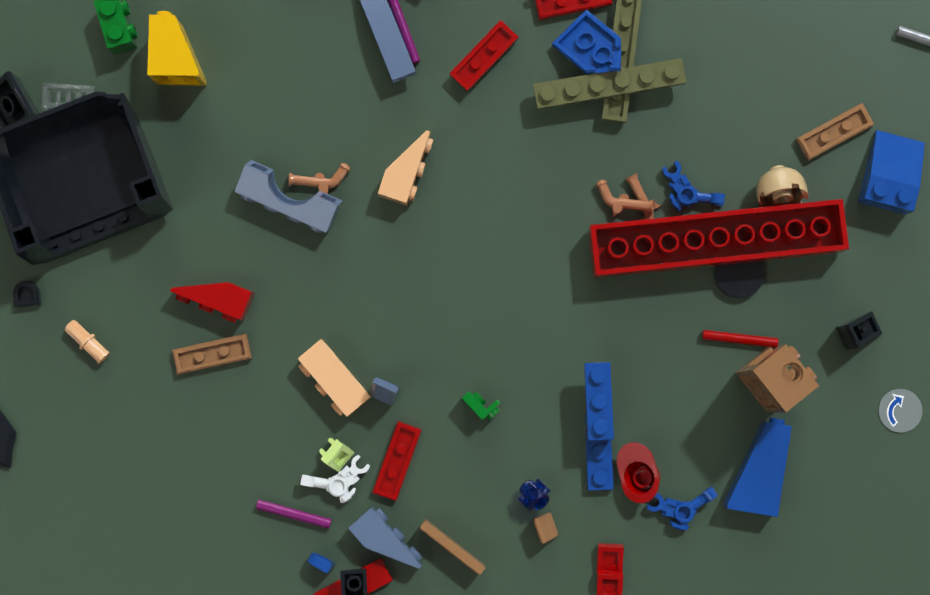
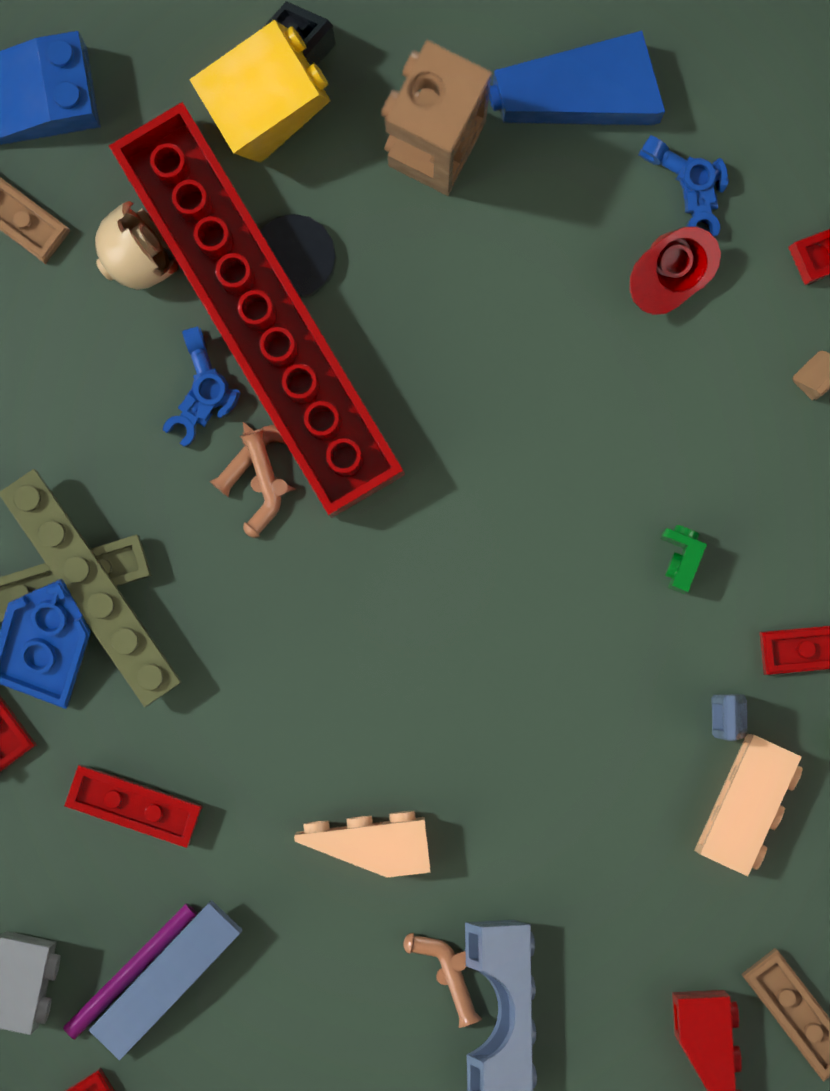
camera: 110 degrees left, 0 degrees up
(534, 494) = (781, 412): clear blue gear -> none
(598, 426) = (630, 362): blue bracket -> none
(740, 338) = (393, 210): red bar -> none
(835, 293) = (262, 91): none -> yellow slope

